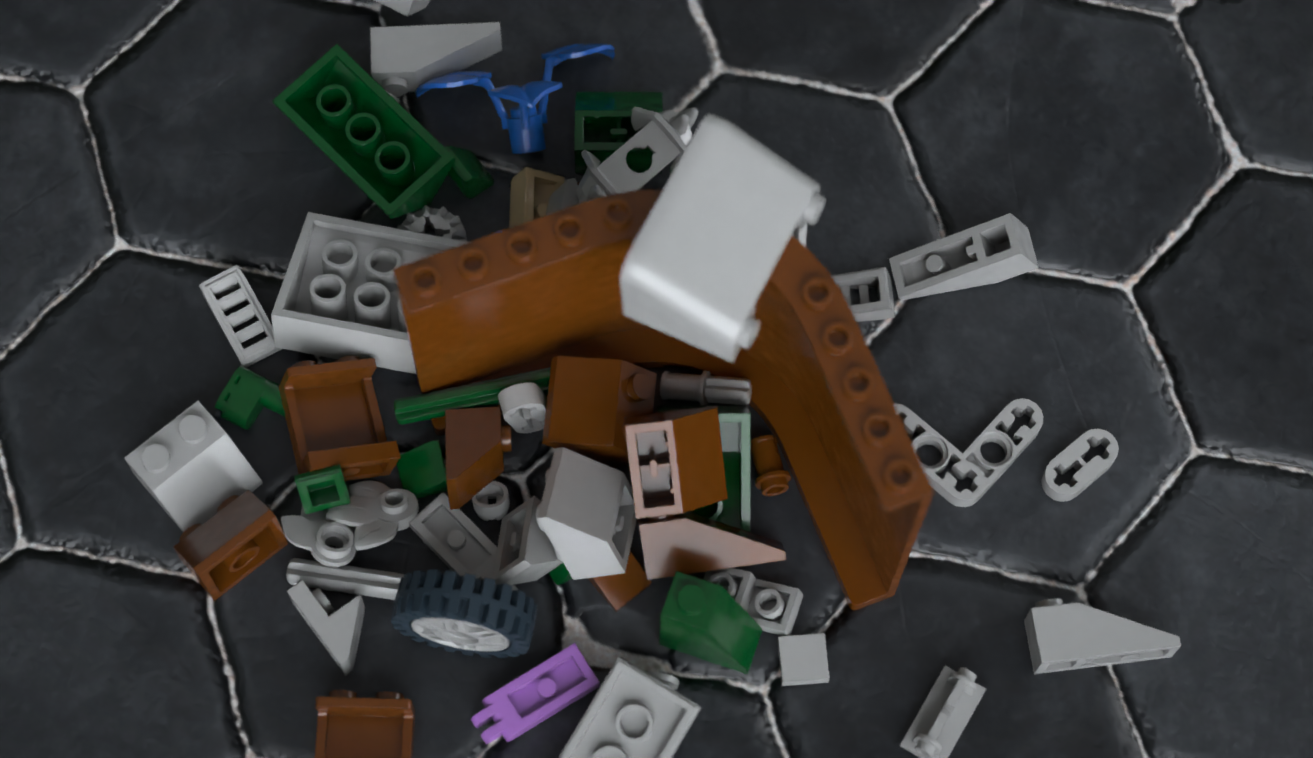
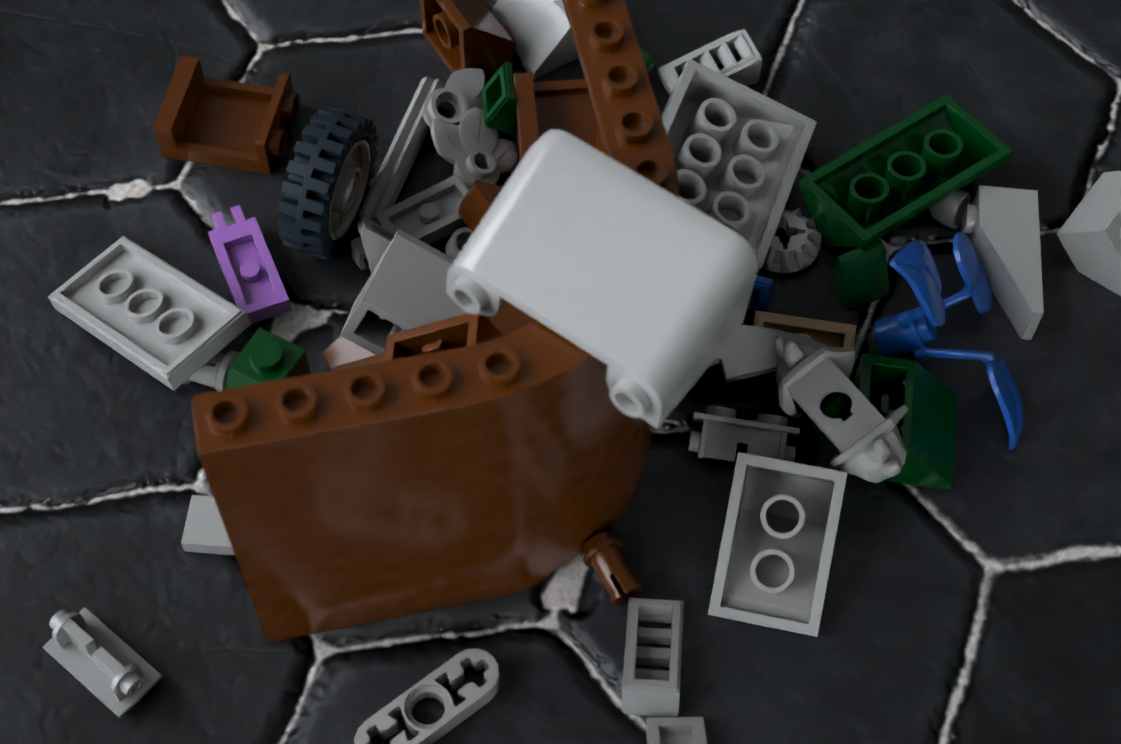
camera: 100 degrees right, 10 degrees down
(336, 632) = (372, 95): light grey slope -> none

